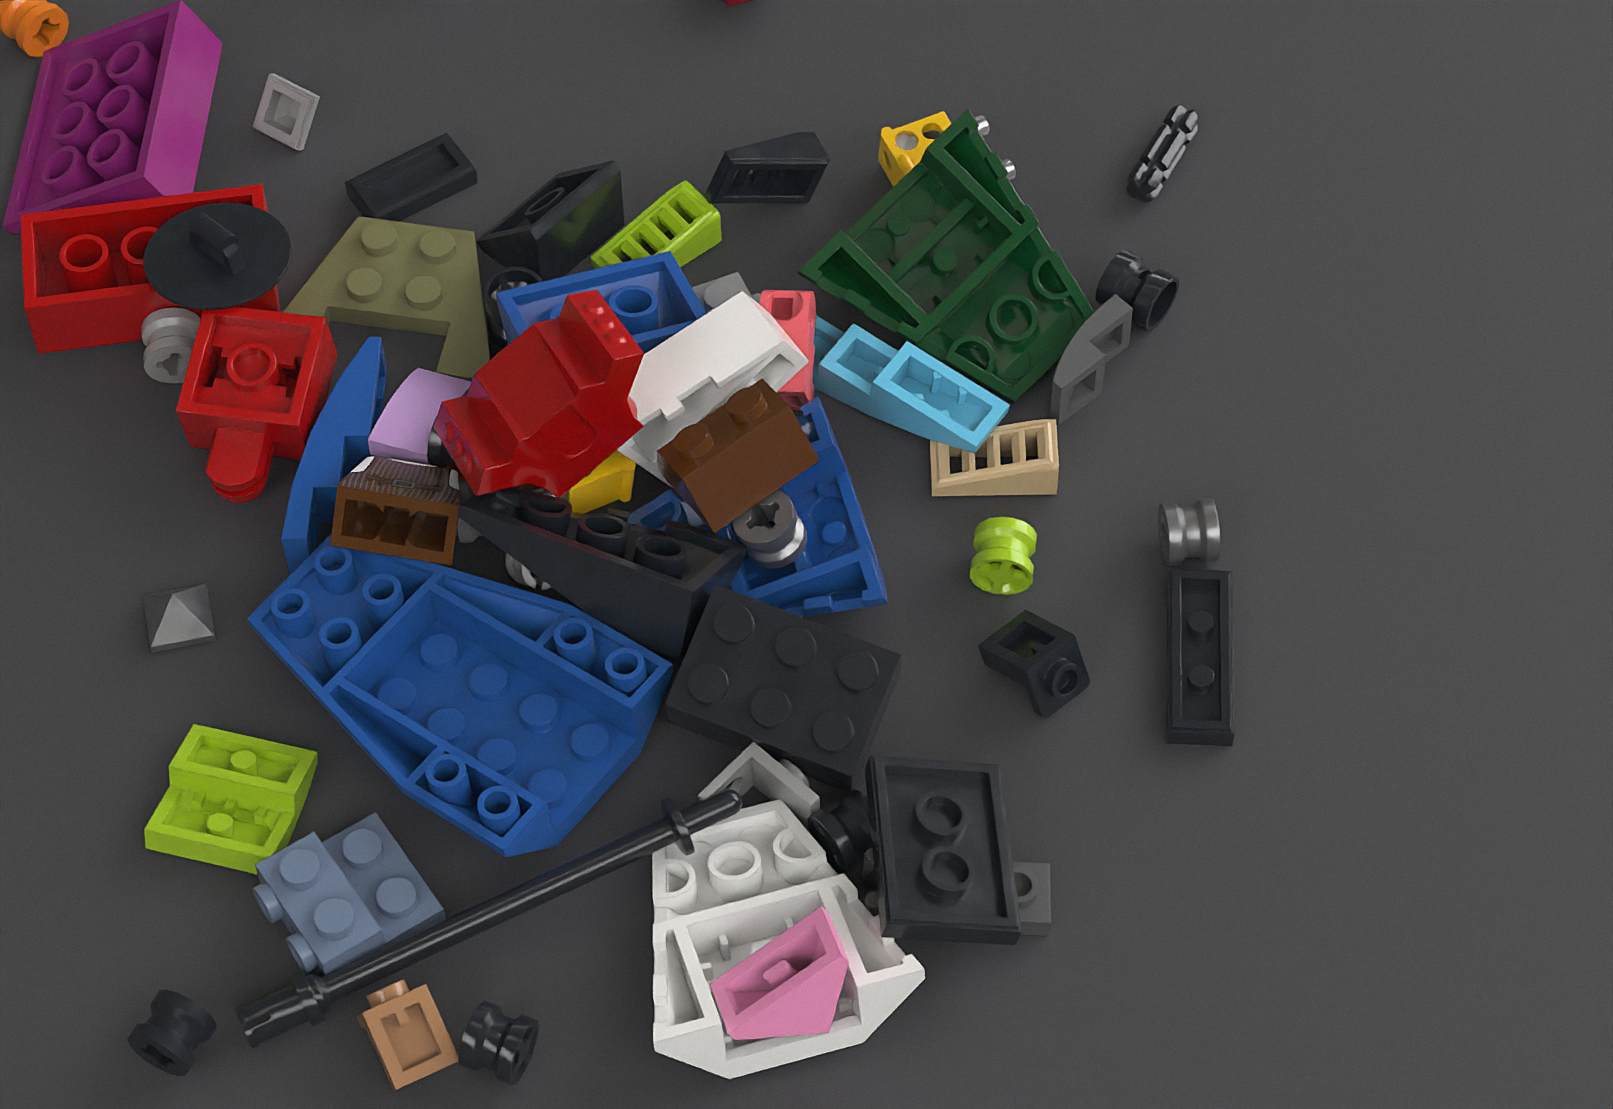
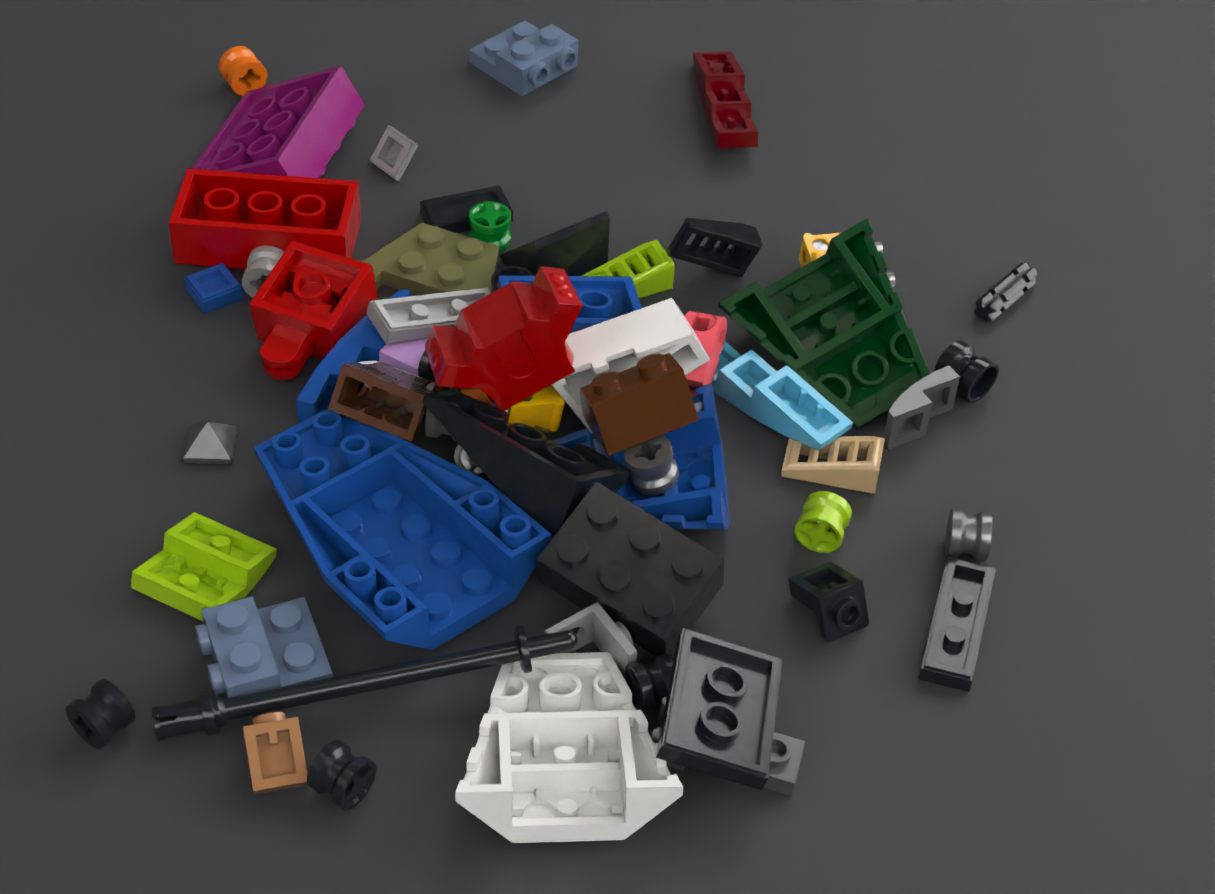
camera: 10 degrees right, 10 degrees down
(104, 380) = (213, 288): none -> blue tile
(217, 256) = (311, 215): black shield -> none
(422, 367) = (414, 316): none -> light grey tile
(454, 189) = (491, 224): none -> green wheel
(786, 984) = (572, 776): bright pink slope -> none

